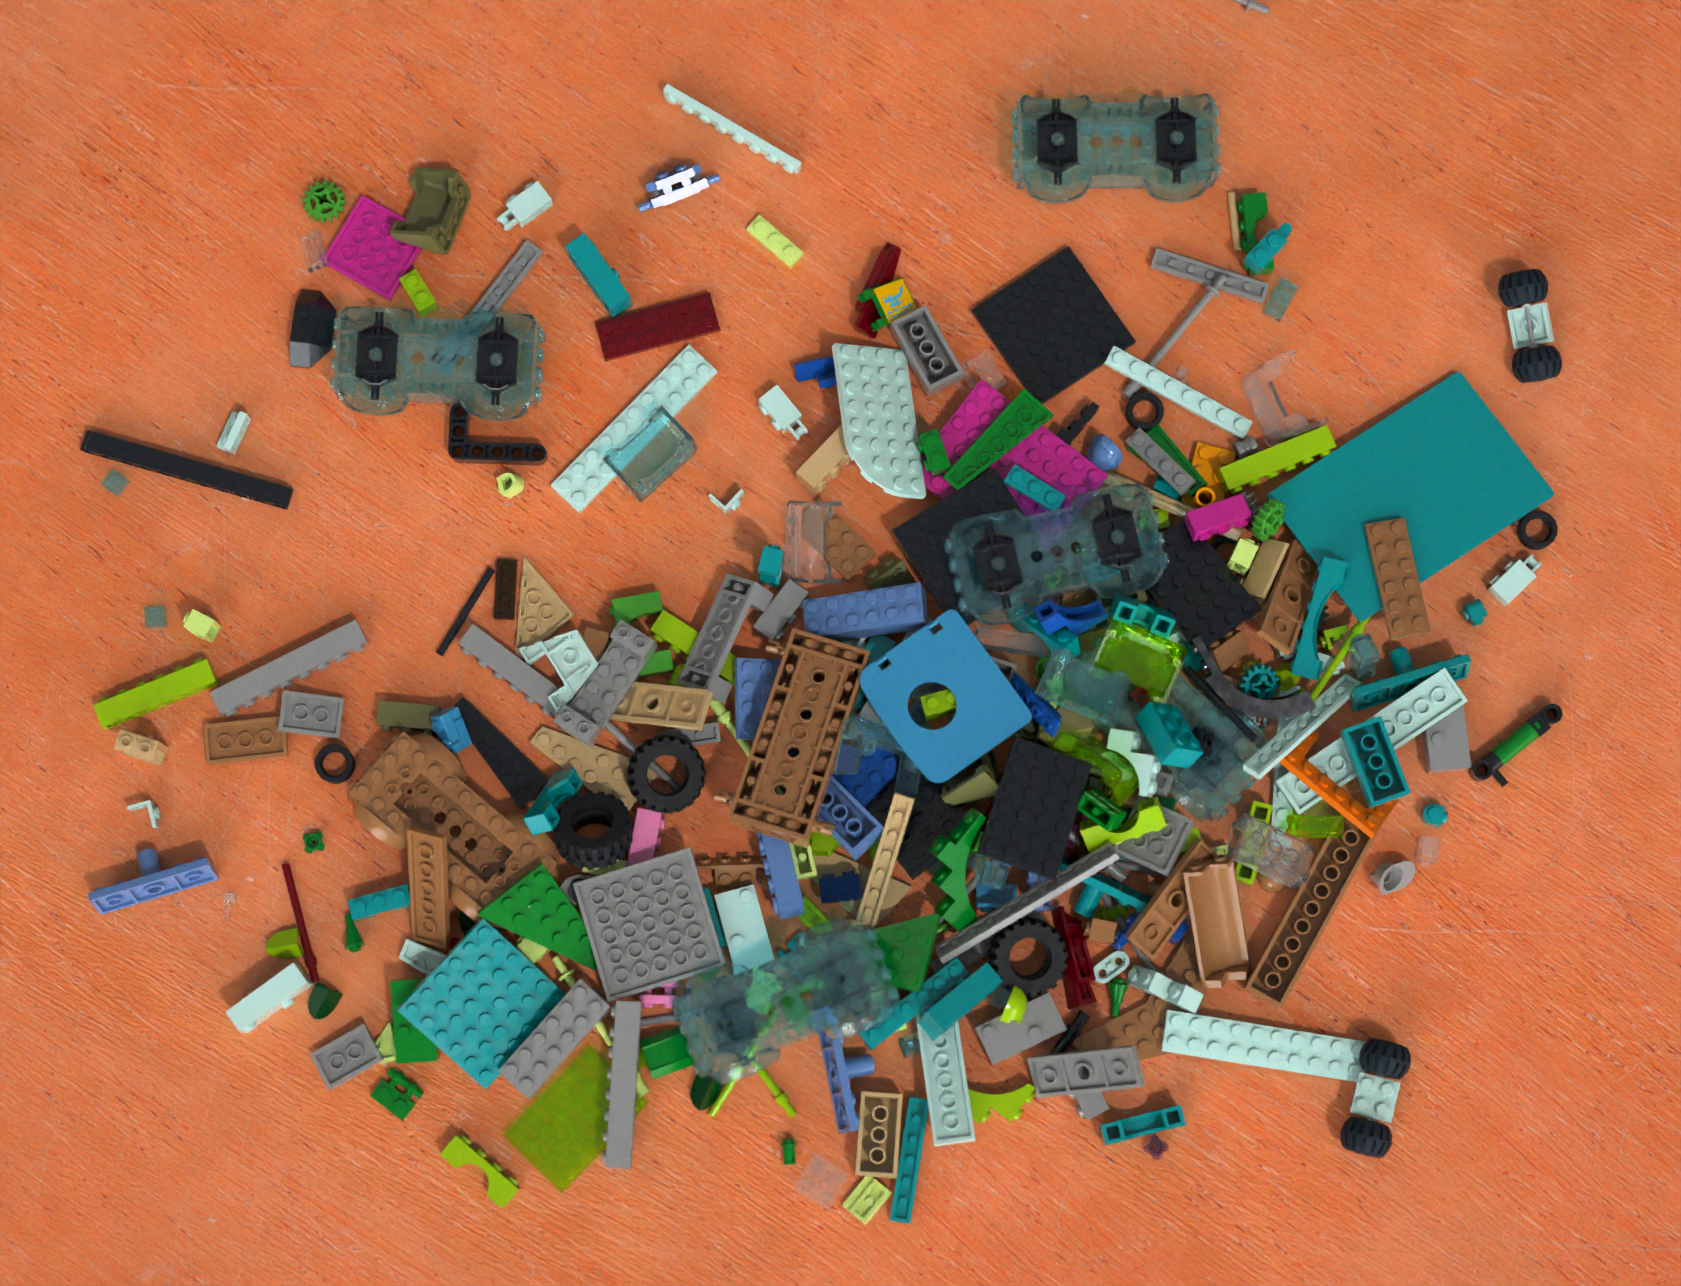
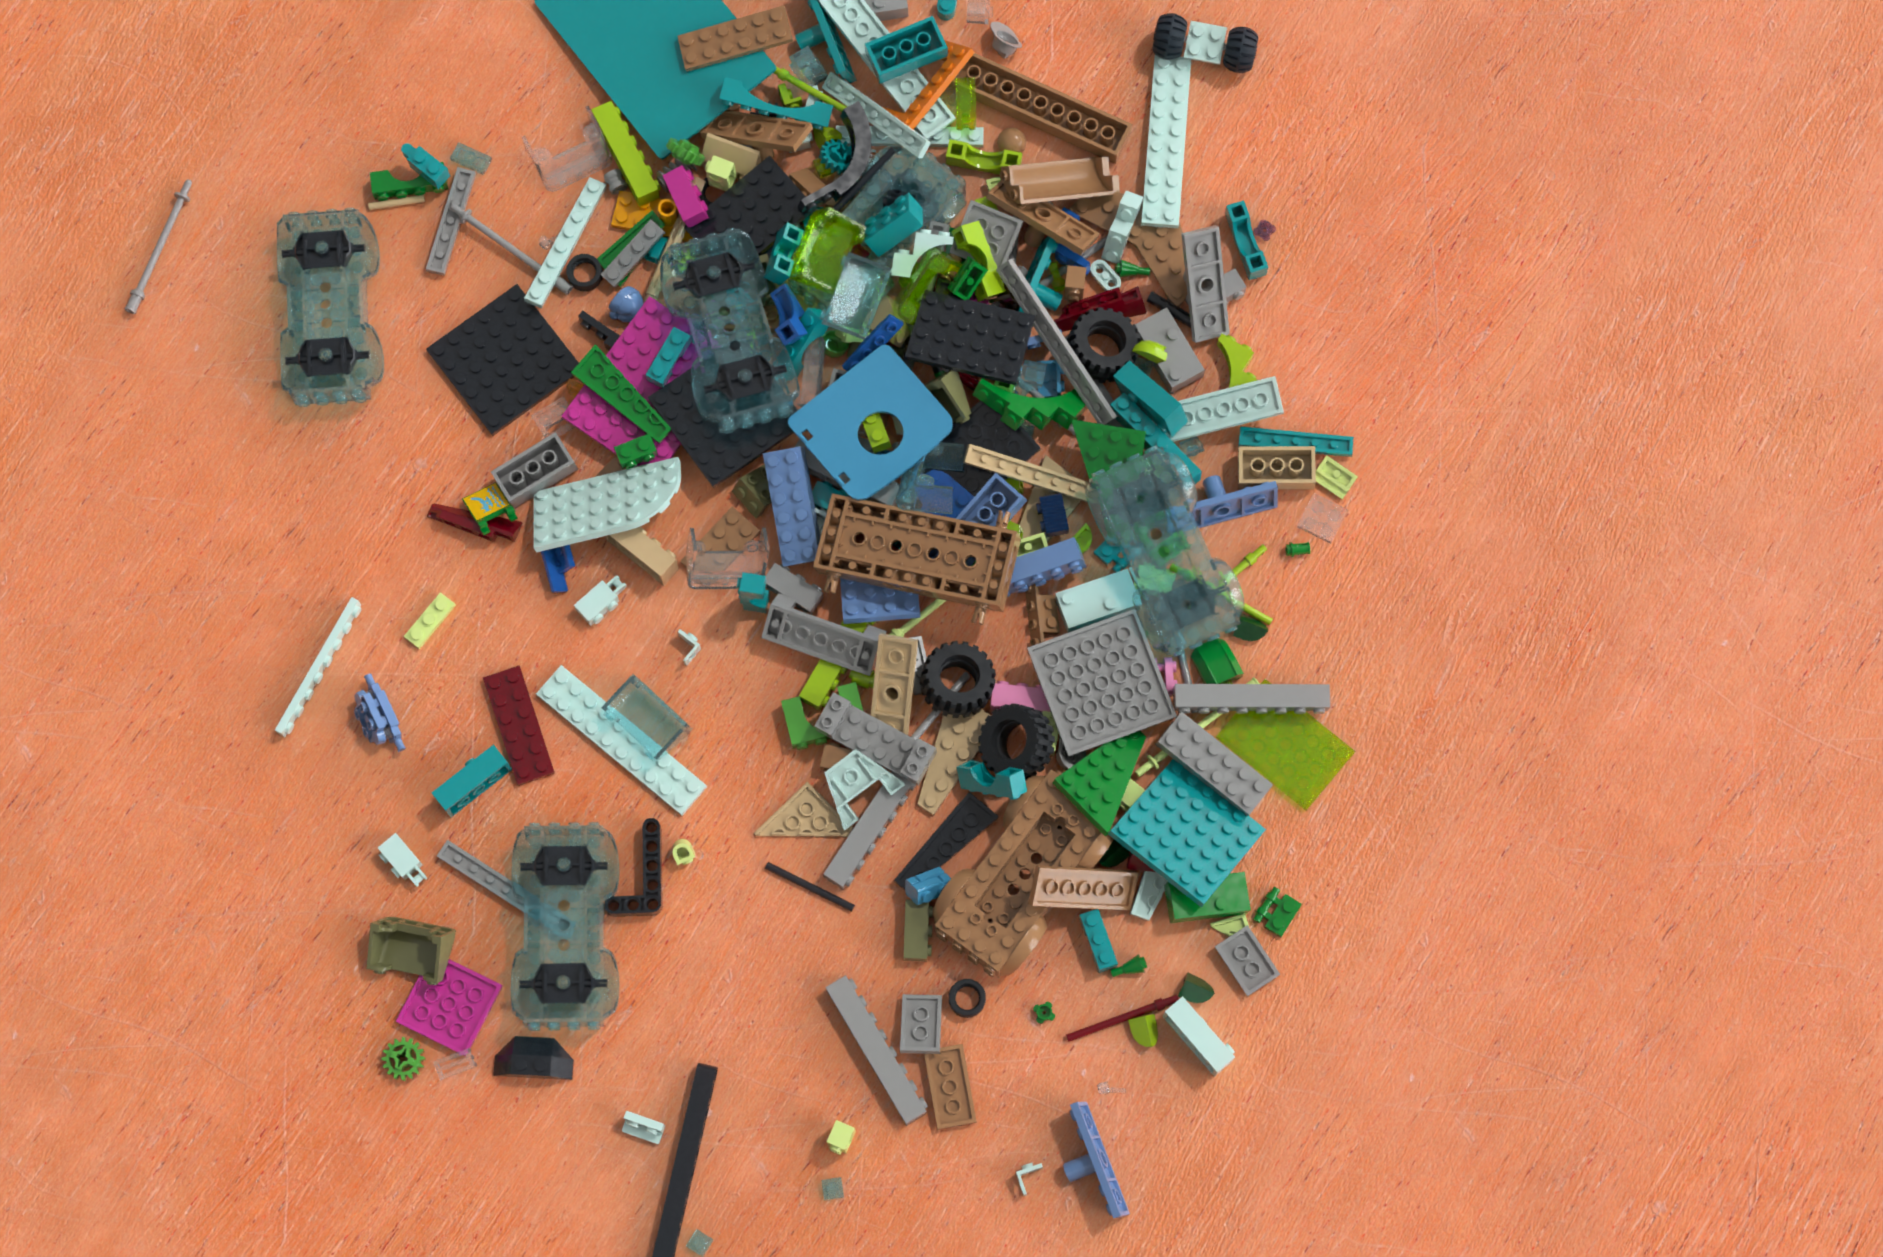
camera: 90 degrees left, 5 degrees down
(141, 747) = (965, 1184): tan panel -> none
(155, 694) = (910, 1179): lime brick -> none
(418, 293) = (494, 956): lime brick -> none
(500, 1188) = (1356, 807): lime arch -> none
(505, 589) = (786, 850): dark brown tile -> none
(1270, 851) = (991, 139): clear brick -> none

